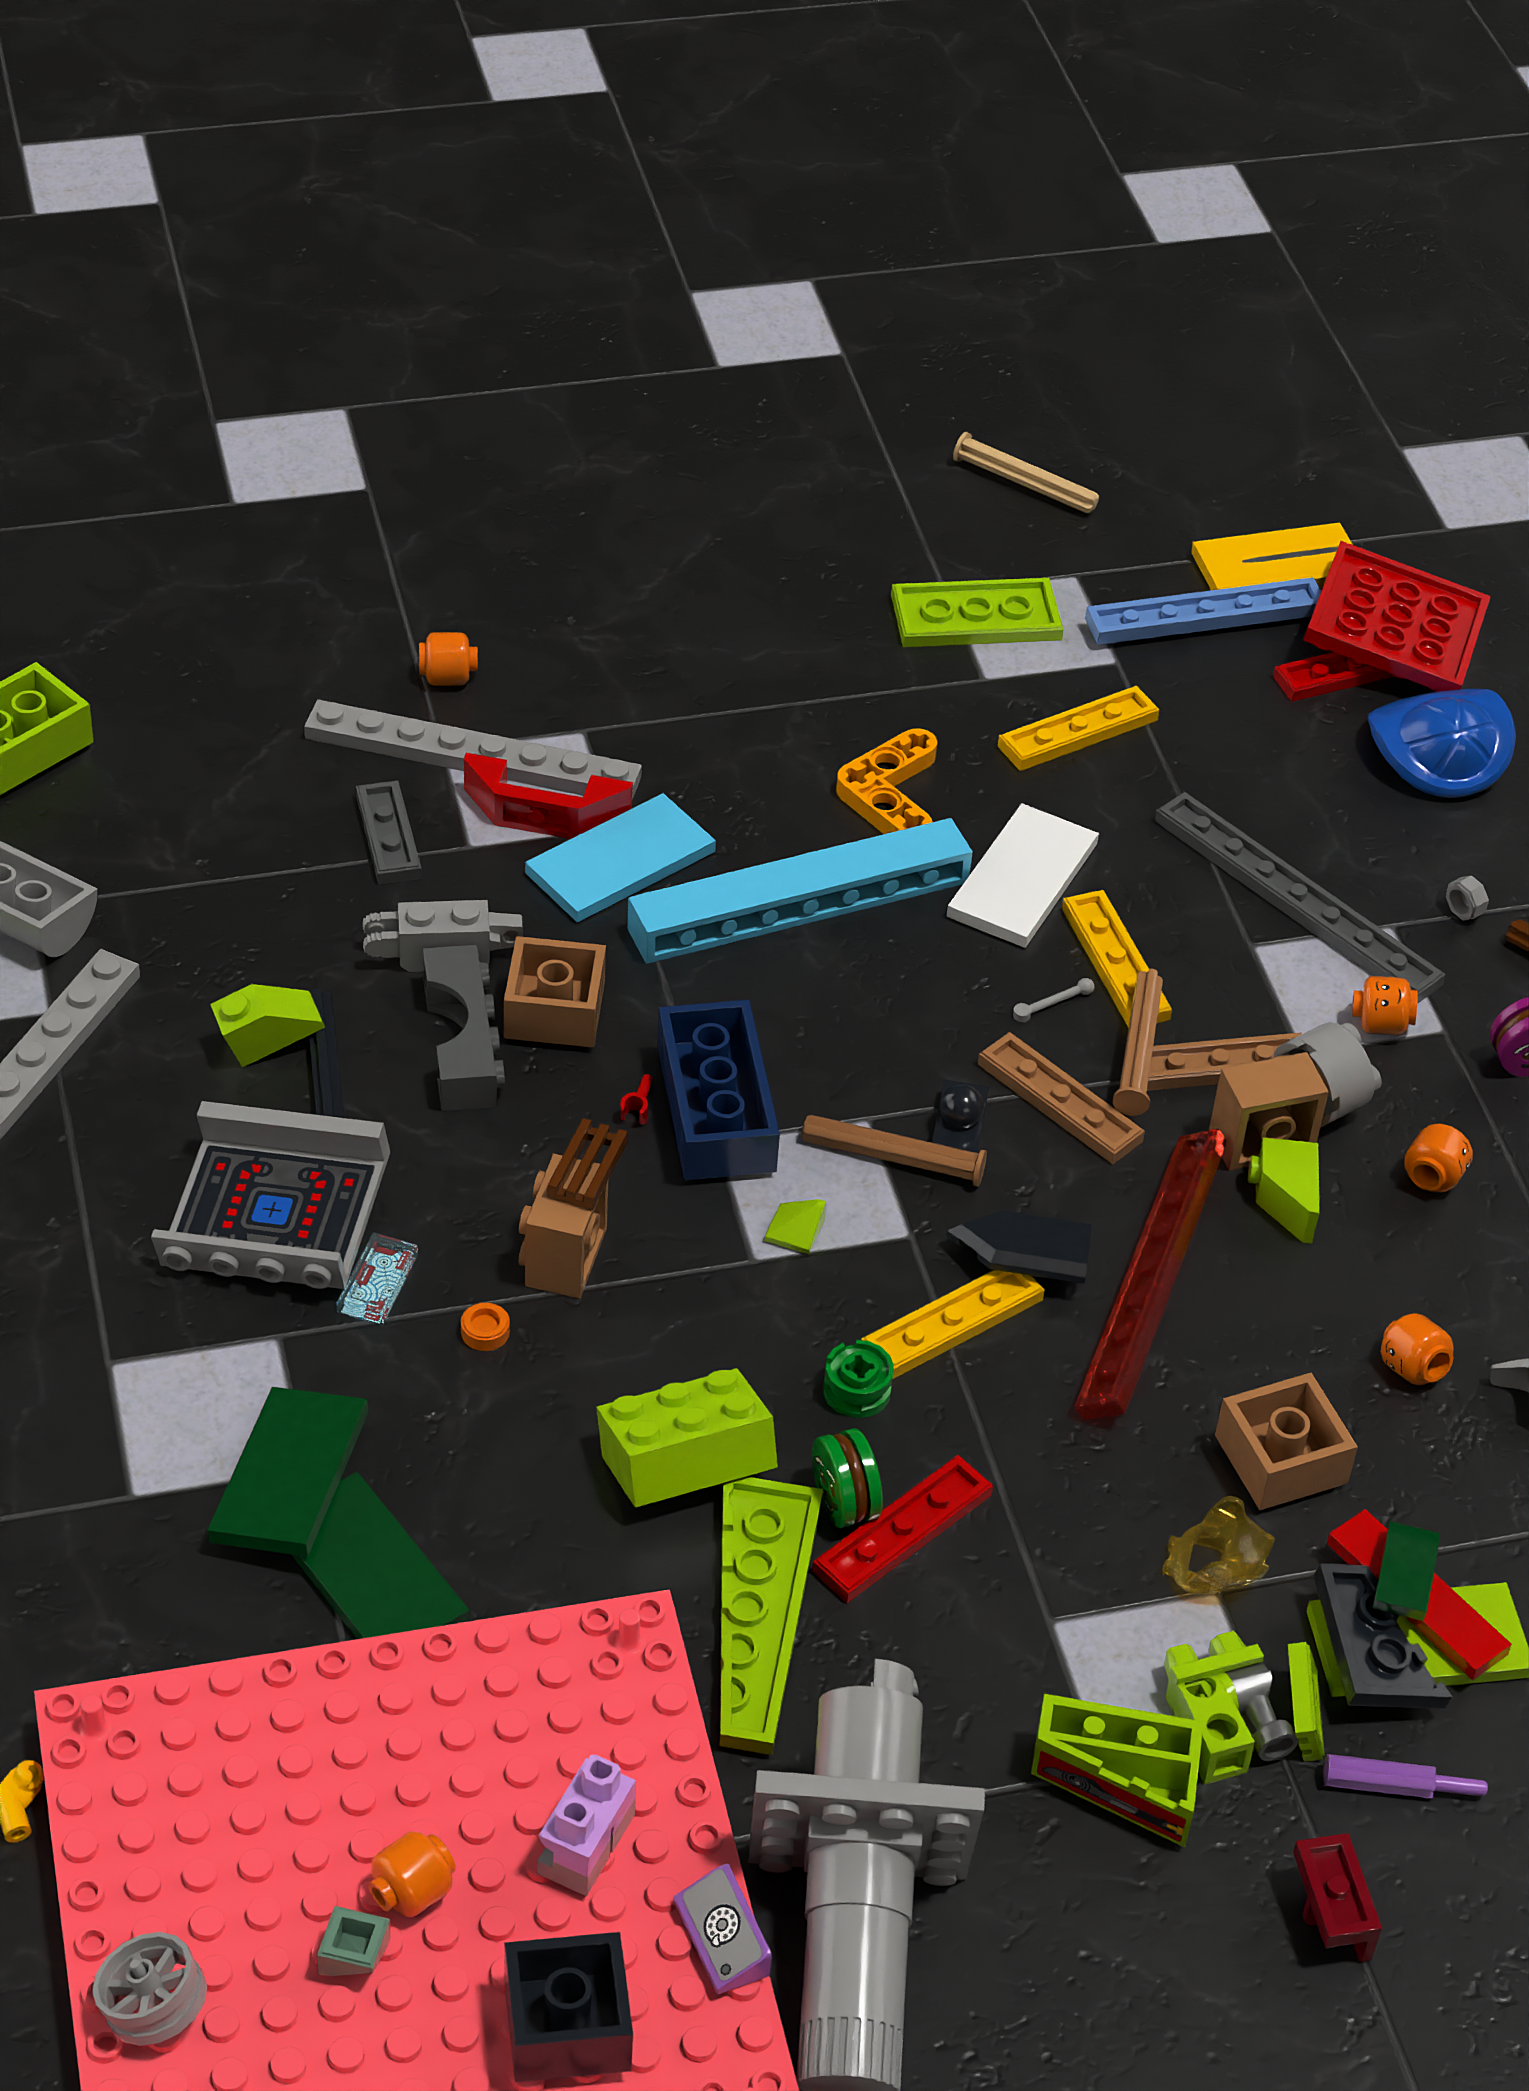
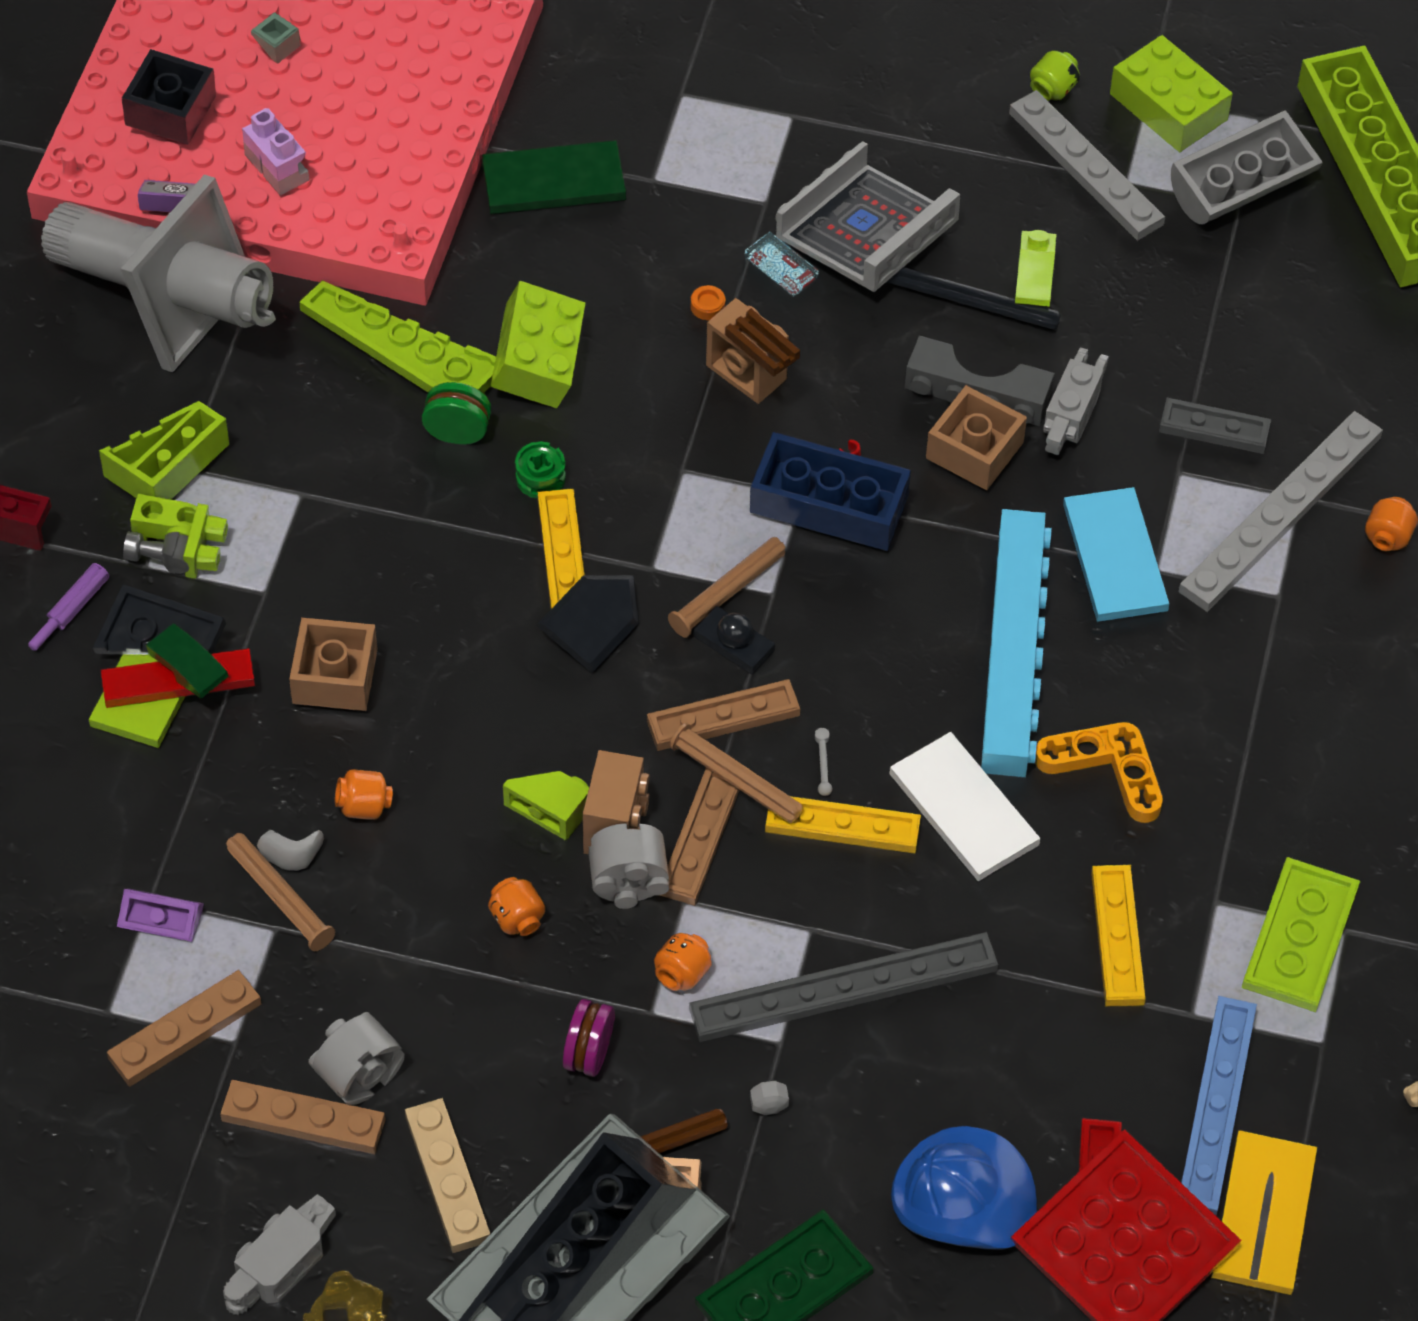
camera: 120 degrees right, 10 degrees up
(288, 1471) = (644, 157): dark green tile -> none
(411, 1873) = (299, 72): orange head -> none
(539, 809) = (1223, 493): red slope -> none
(797, 1224) = (694, 502): lime slope -> none
(902, 1528) = (415, 448): red tile -> none
(1151, 1276) = (518, 668): clear red plate -> none
(1238, 1539) = (264, 575): clear yellow helmet -> none
(1306, 1701) = (148, 572): lime tile -> none

